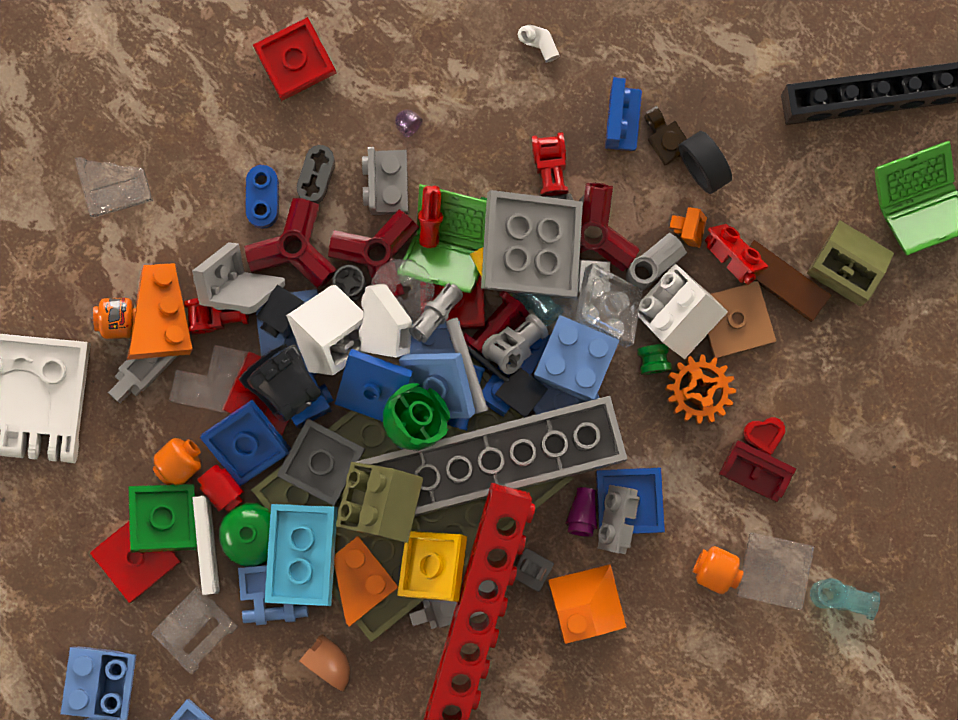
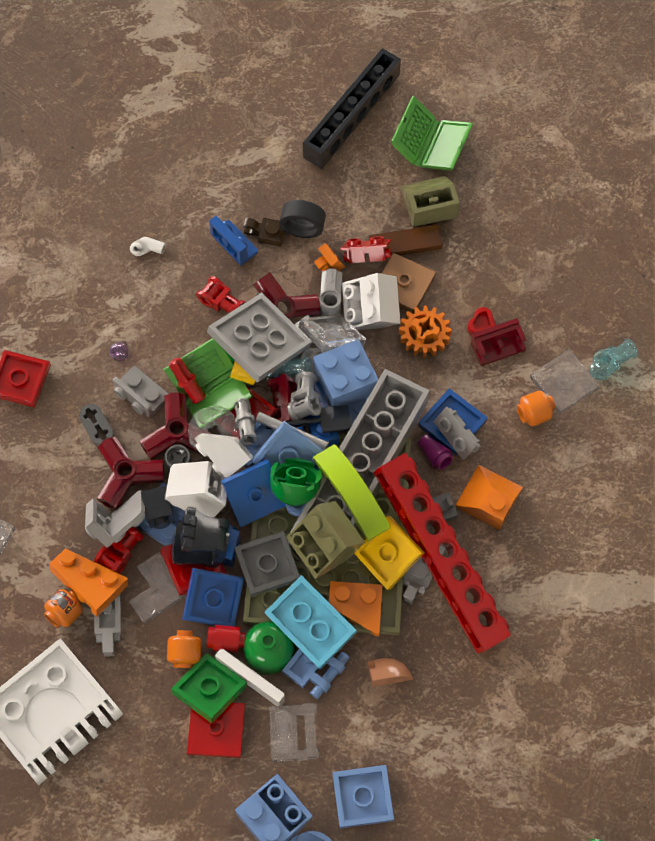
camera: 50 degrees left, 15 degrees down
(262, 195) = (76, 465): blue plate -> none
(451, 480) = (352, 491): none -> lime slope
(654, 359) = (384, 340): green wheel -> none

